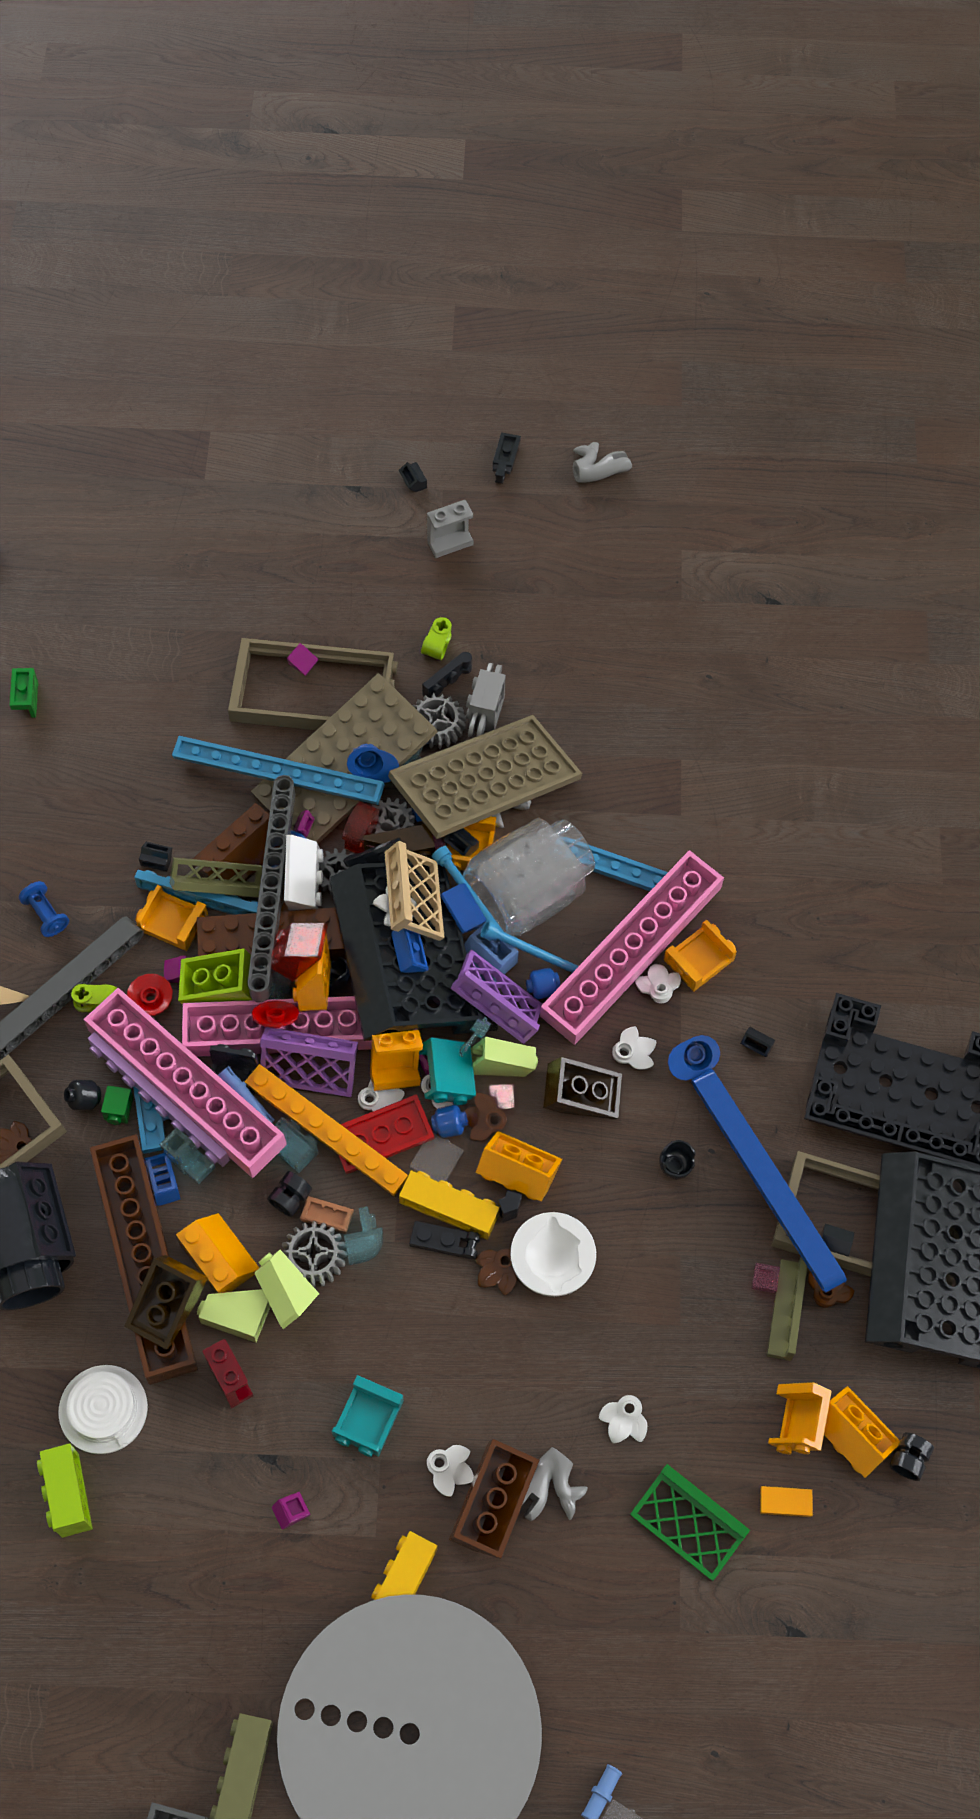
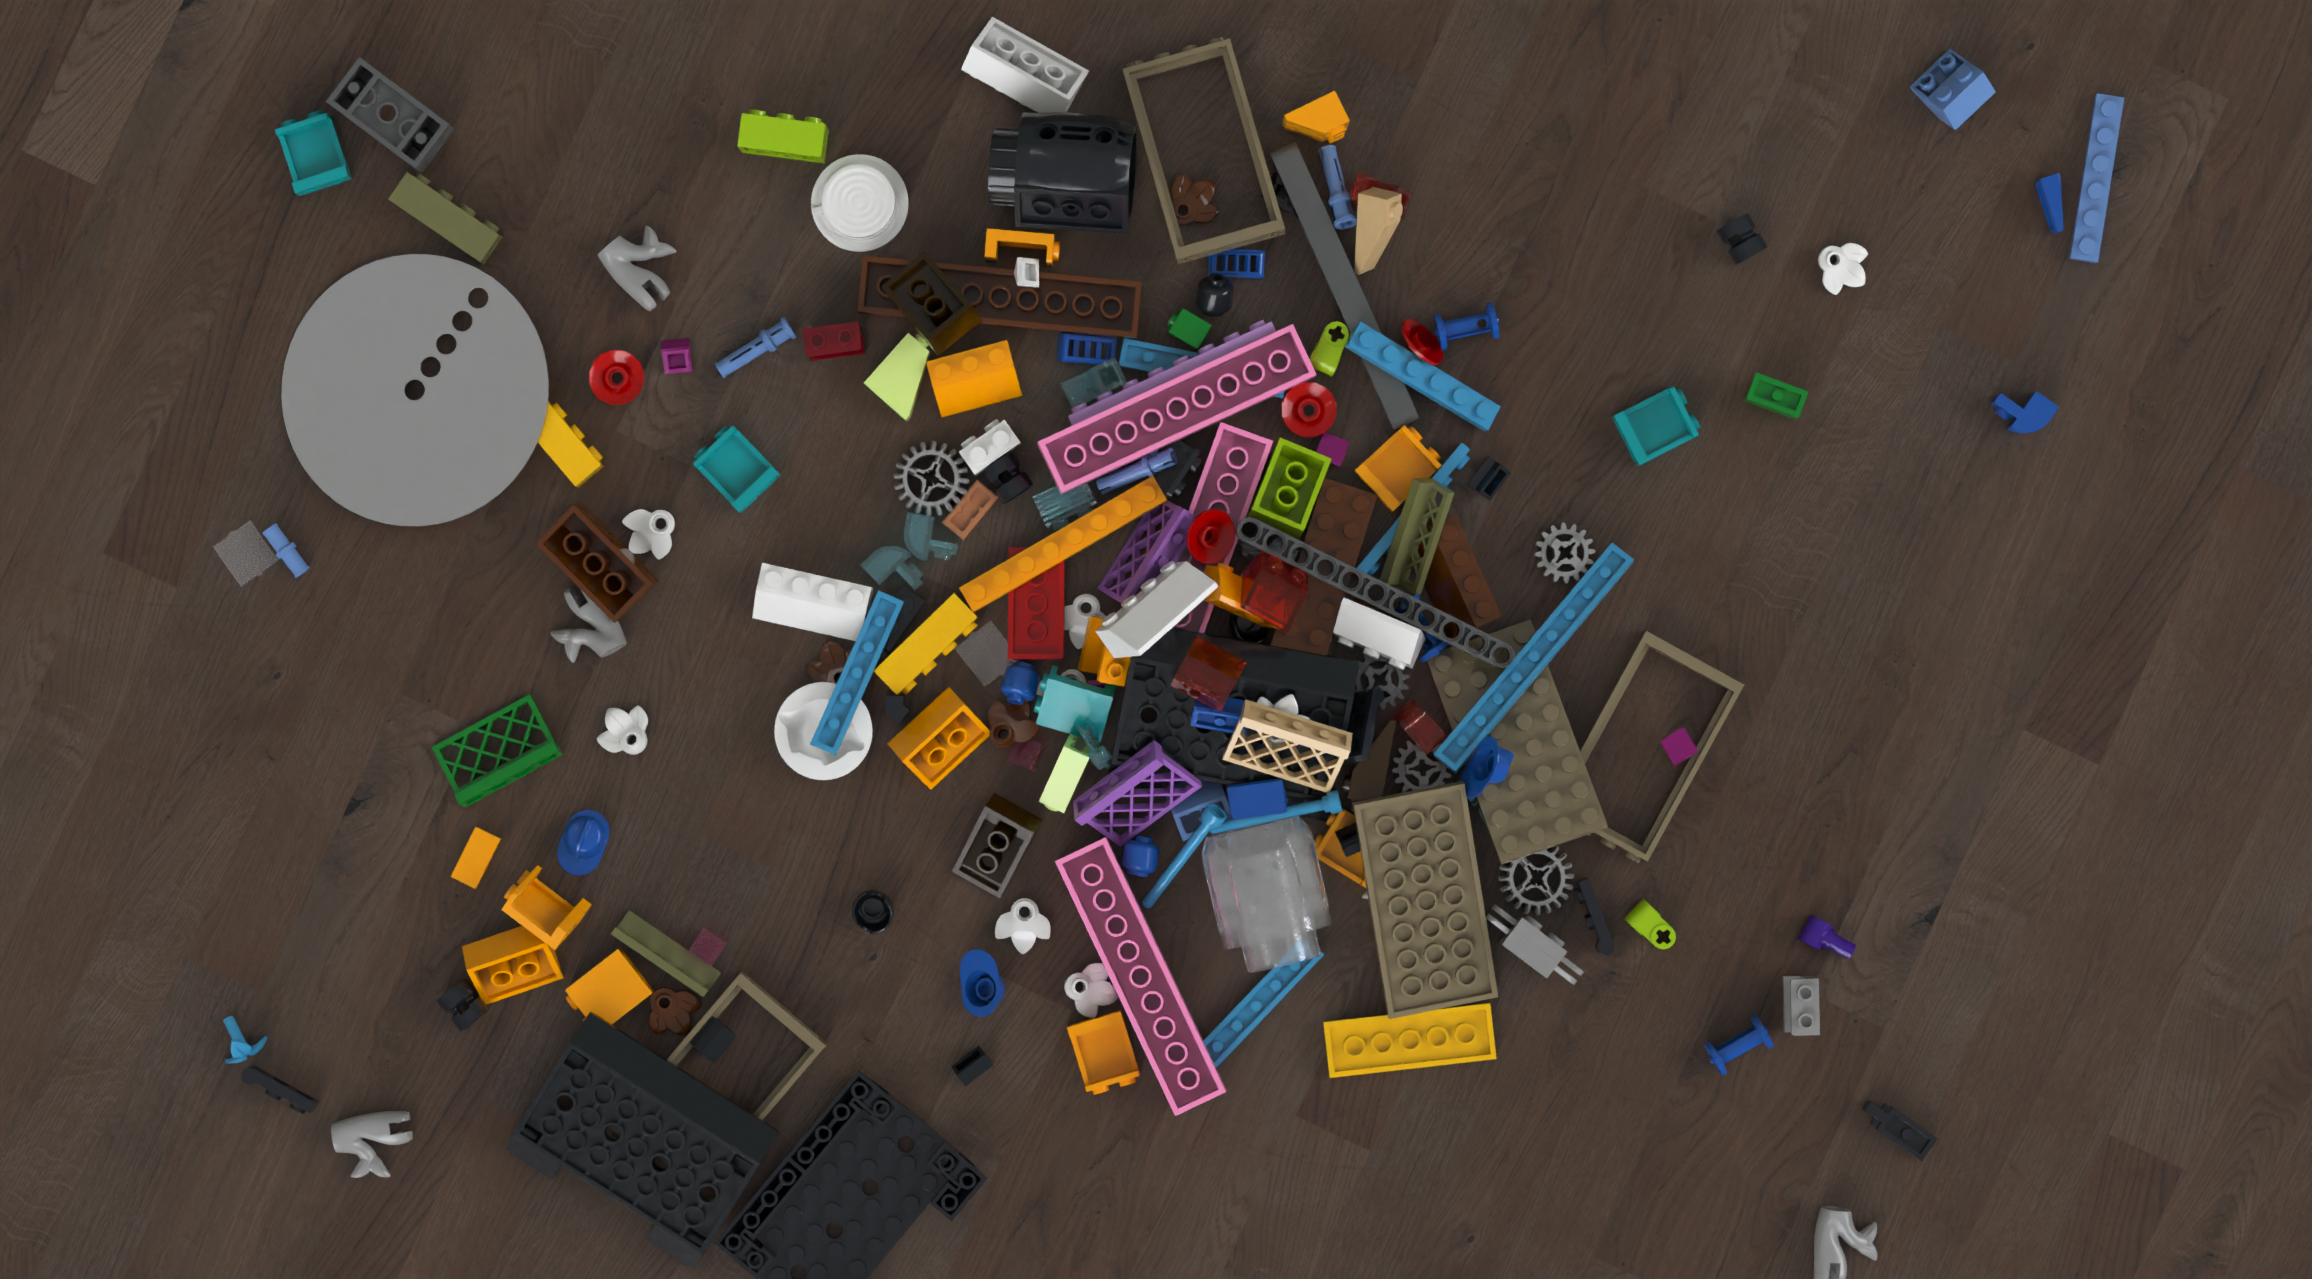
camera: 115 degrees right, 25 degrees up
(49, 1076) = (1259, 270): none -> blue slope
(69, 935) = (1421, 342): none -> red dish
(74, 761) = (1656, 425): none -> teal panel
(93, 923) = (1422, 376): none -> dark azure plate
(100, 1277) = (1021, 239): none -> light orange panel
(113, 1236) = (1027, 272): none -> white slope
(193, 788) = (1574, 561): none -> light grey gear
(224, 1597) = (635, 280): none -> light grey piece
(250, 1432) = (767, 340): none -> medium blue pin
(269, 1217) = (989, 447): none -> white brick
(284, 1287) = (899, 433): yellowish green slope -> none
(304, 823) = (1452, 661): magenta slope -> none
(328, 1539) = (602, 375): none -> red dish
(349, 1019) = (1154, 609): none -> white slope
(383, 962) = (1208, 673): none -> clear red slope
(393, 1260) = (887, 561): none -> clear light blue brick
(397, 541) = (1821, 936): none -> dark purple pin
(413, 477) = (1913, 995): black piece -> none
(452, 1308) = (811, 602): none -> white slope
(495, 1242) = (857, 673): none -> dark azure plate
(507, 568) = (1738, 1045): none -> blue hose
(601, 771) = (1409, 1041): none -> yellow plate
(730, 1416) = (583, 842): none -> blue piece
(769, 1181) = (807, 995): blue beam -> none
(839, 1340) = (609, 988): none -> light orange panel

